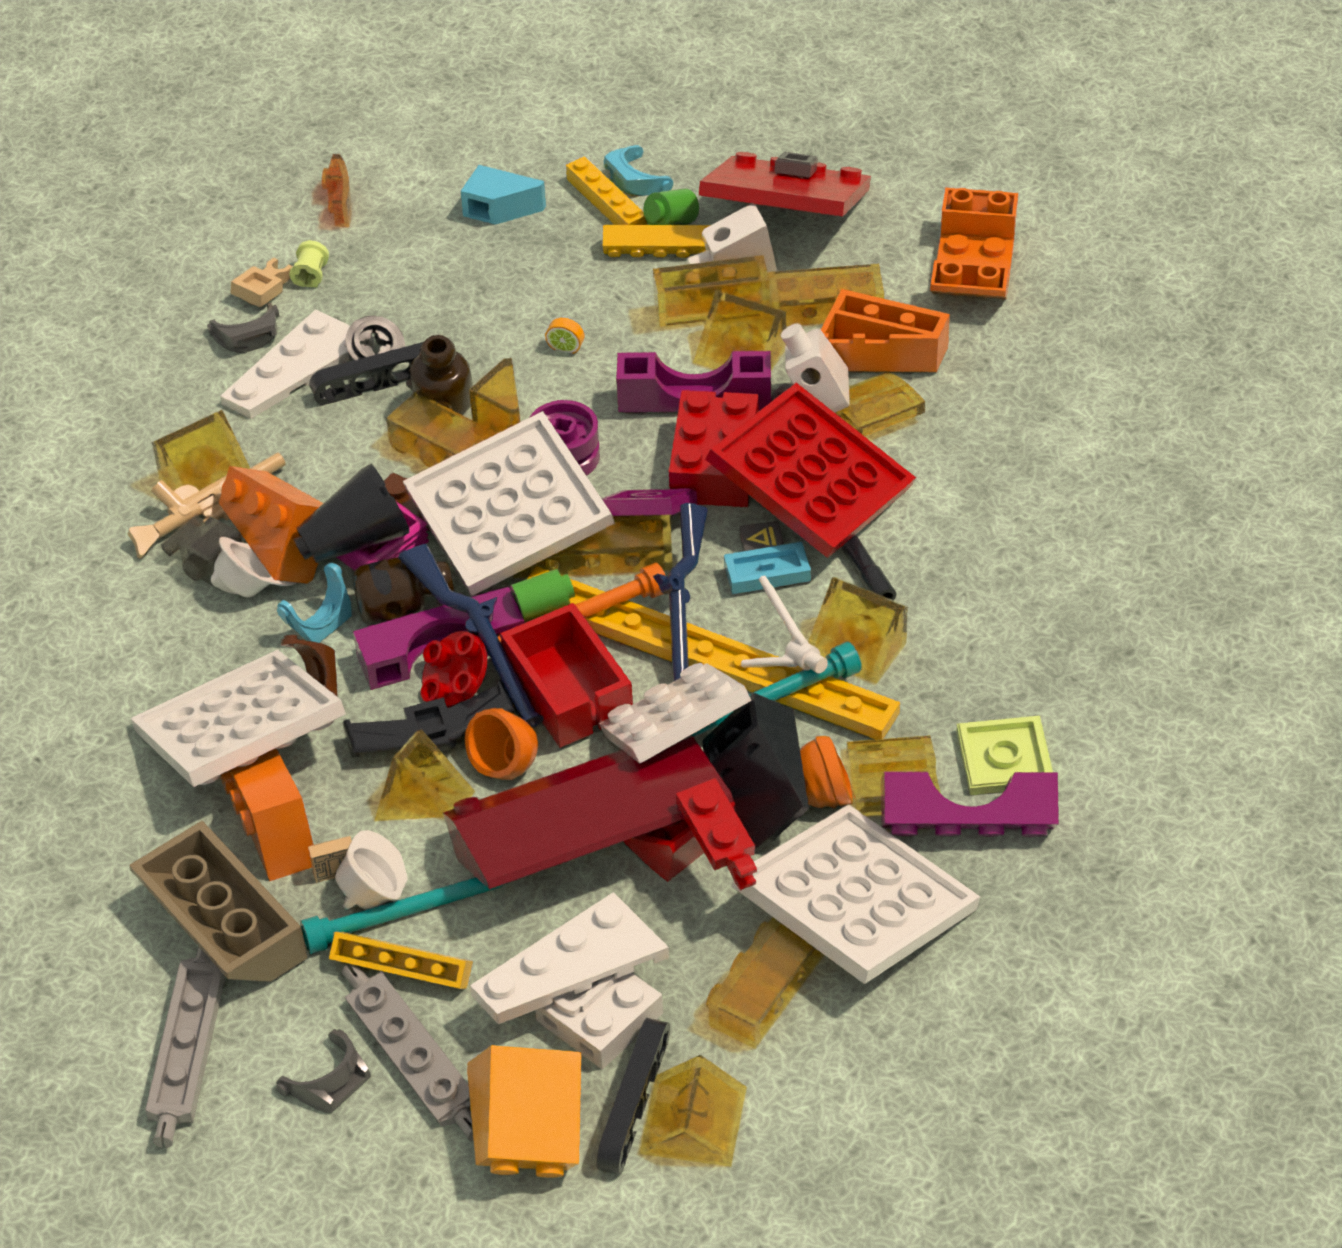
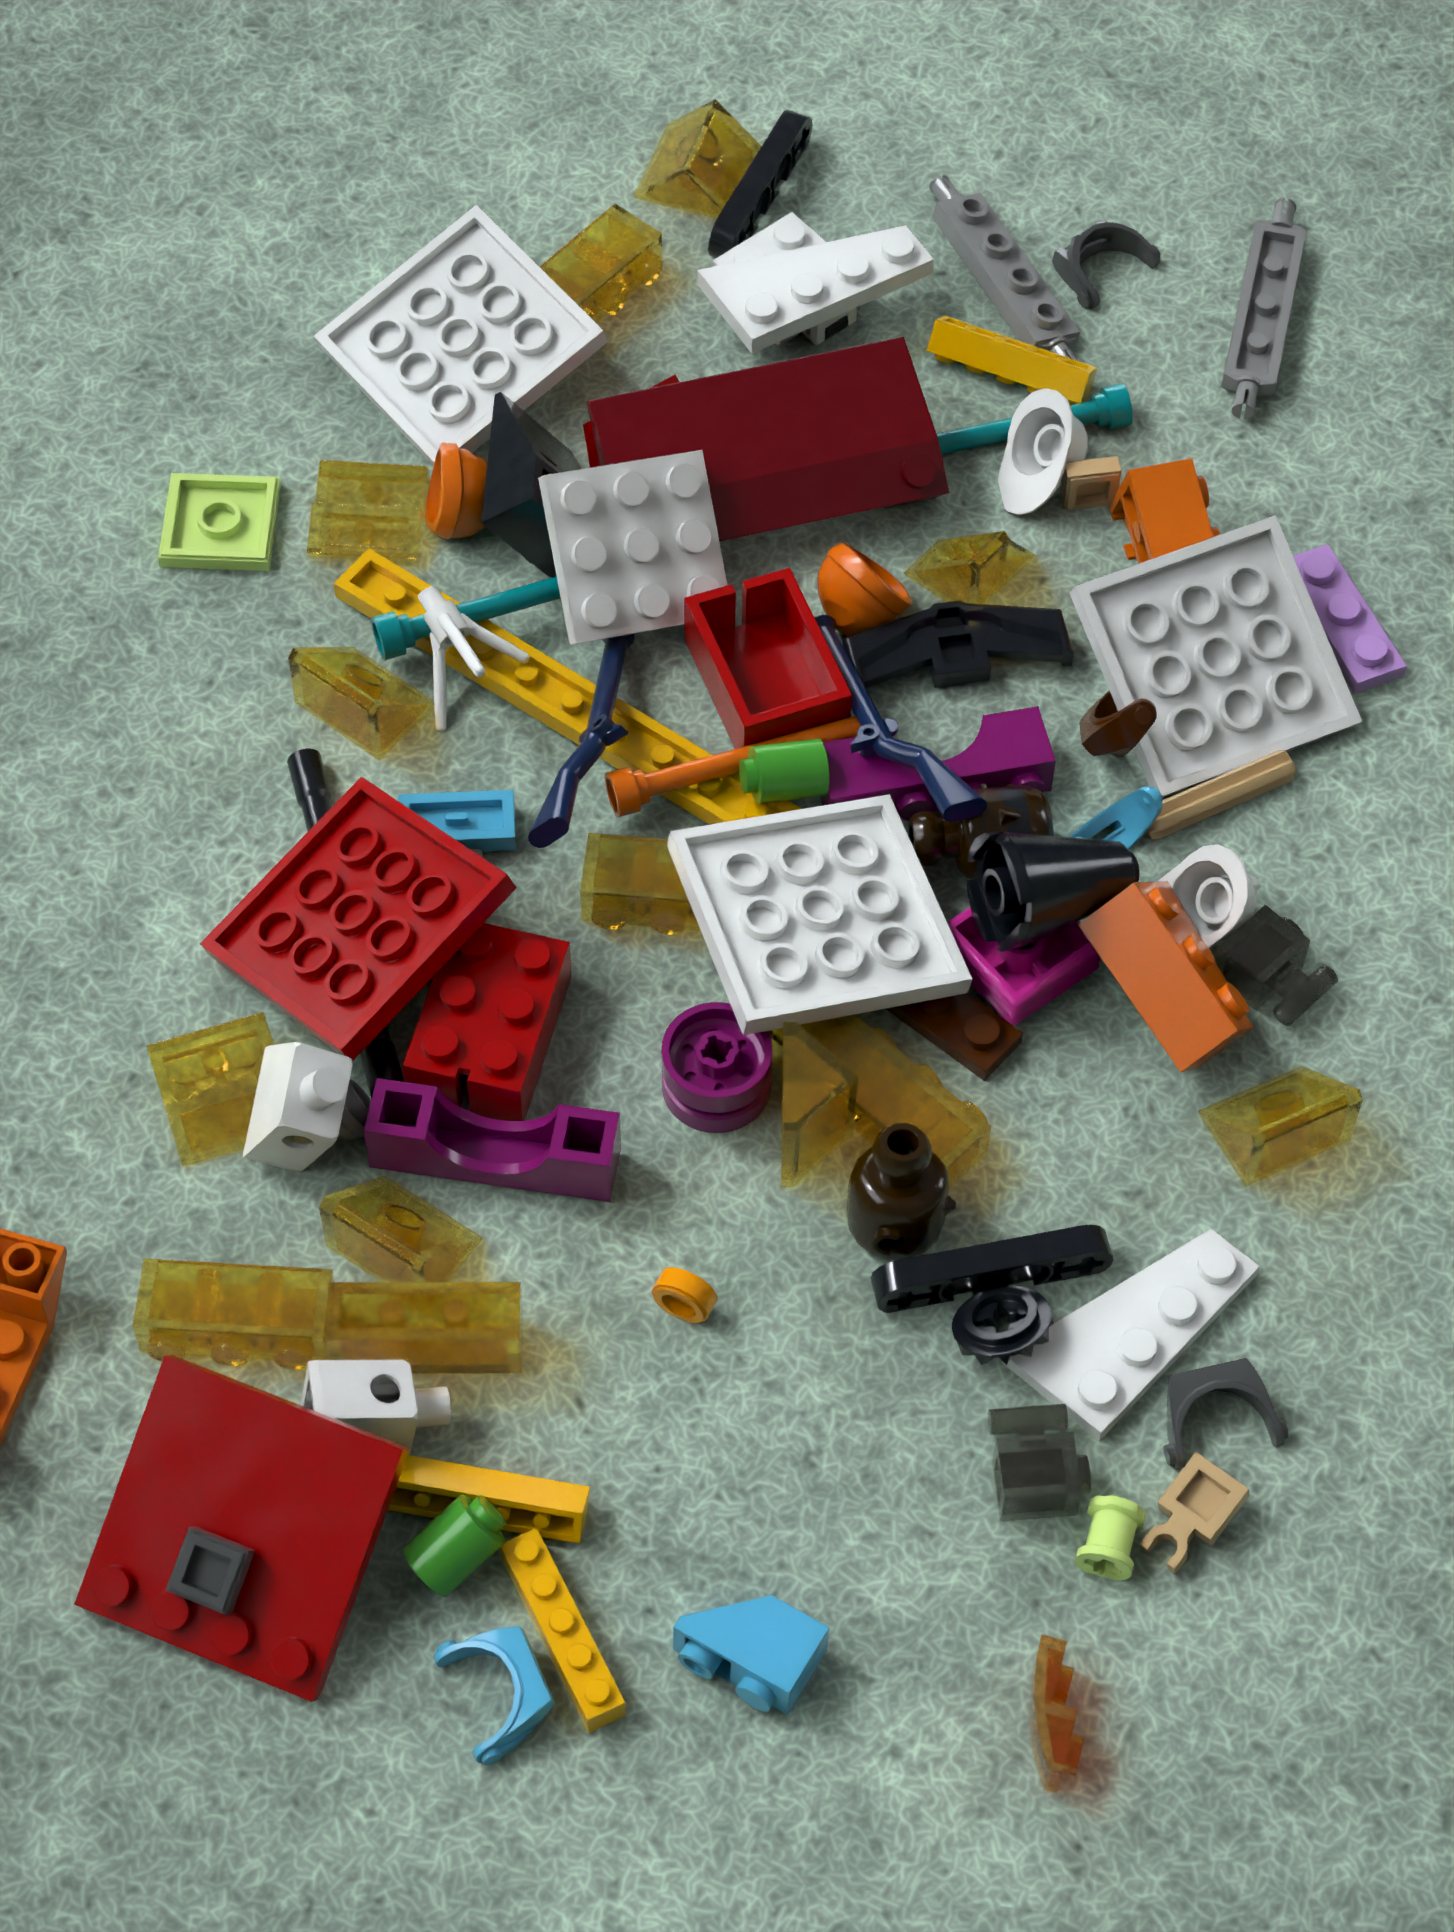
camera: 175 degrees left, 10 degrees up
(139, 796) = (1354, 633): none -> lavender plate
(186, 503) = (1277, 1055): tan piece -> none
(222, 906) = (1231, 416): dark tan slope -> none
(236, 657) = (1223, 793): none -> tan axle
(351, 285) = (1036, 1471): none -> clear smoke brick
(453, 668) = (920, 708): red dish -> none
(525, 1109) = (884, 161): light orange slope -> none
(649, 501) = (612, 912): magenta tile -> none
(719, 830) = (613, 351): red plate -> none
(886, 334) = (174, 1187): orange wedge -> none
(914, 803) = (239, 422): magenta arch -> none

